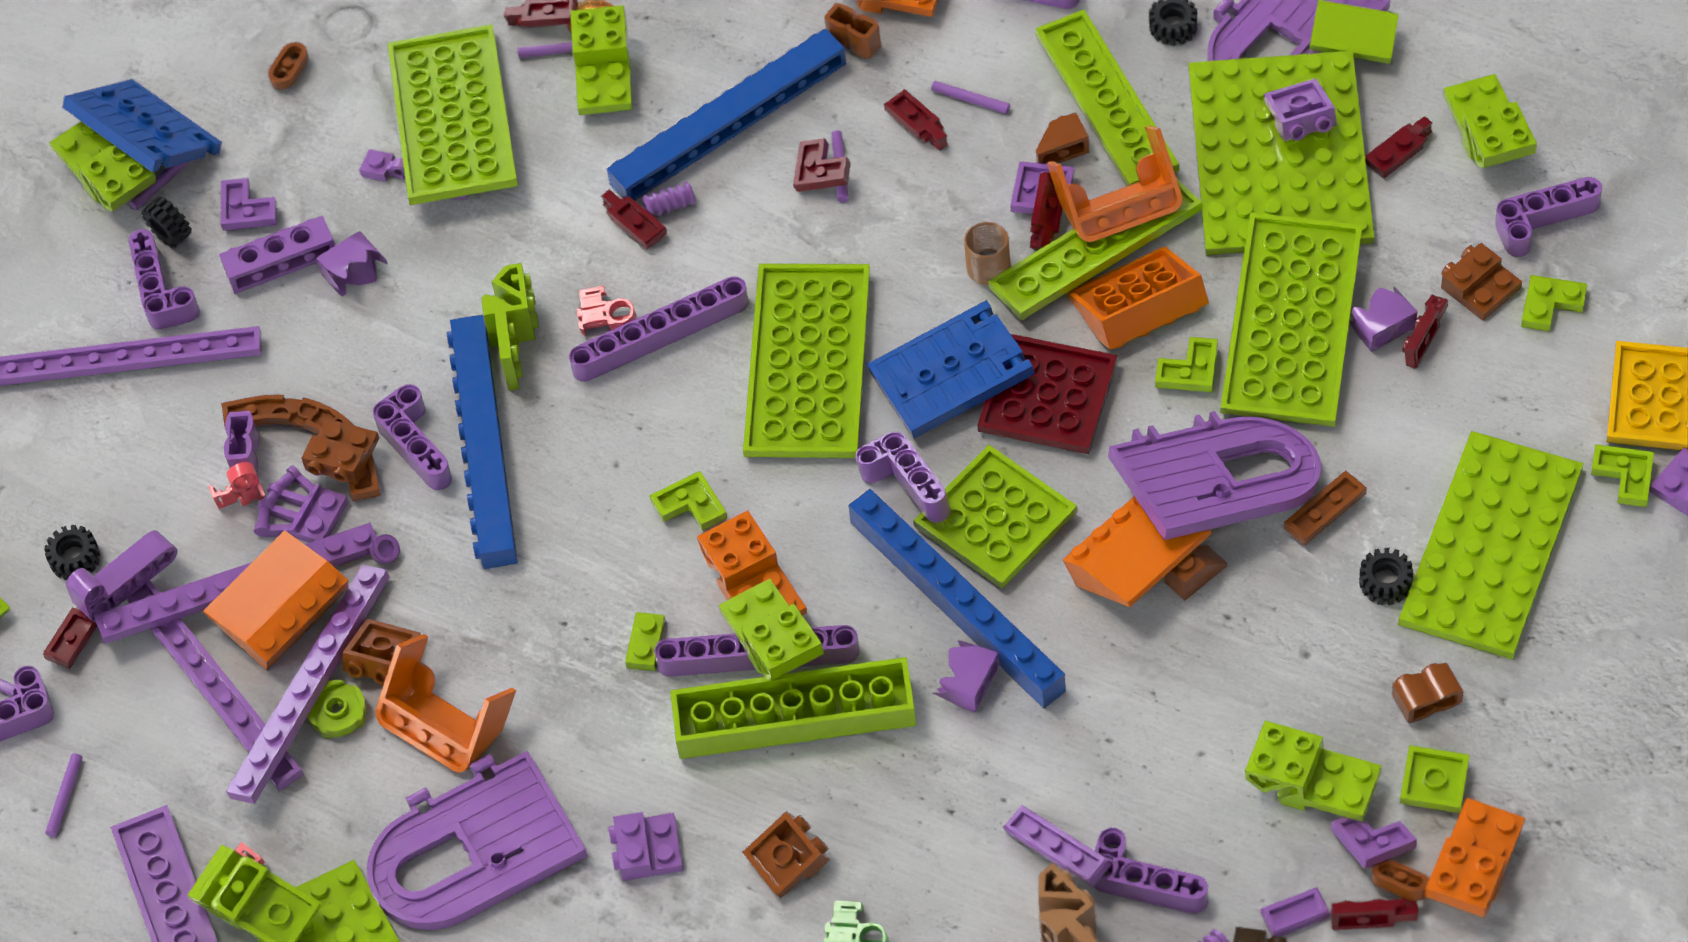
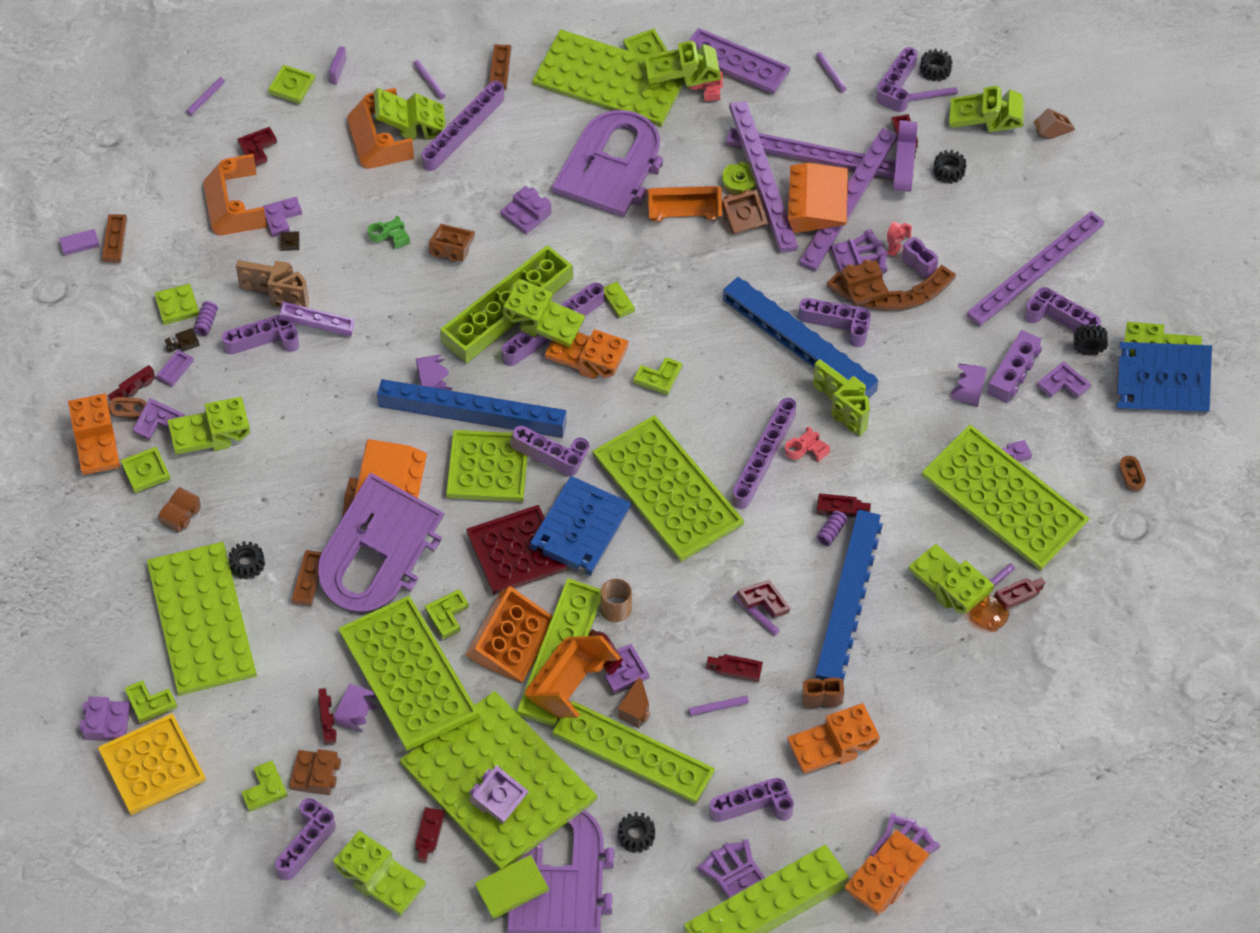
camera: 135 degrees right, 0 degrees up
(384, 549) = (794, 259): medium lavender tile -> none

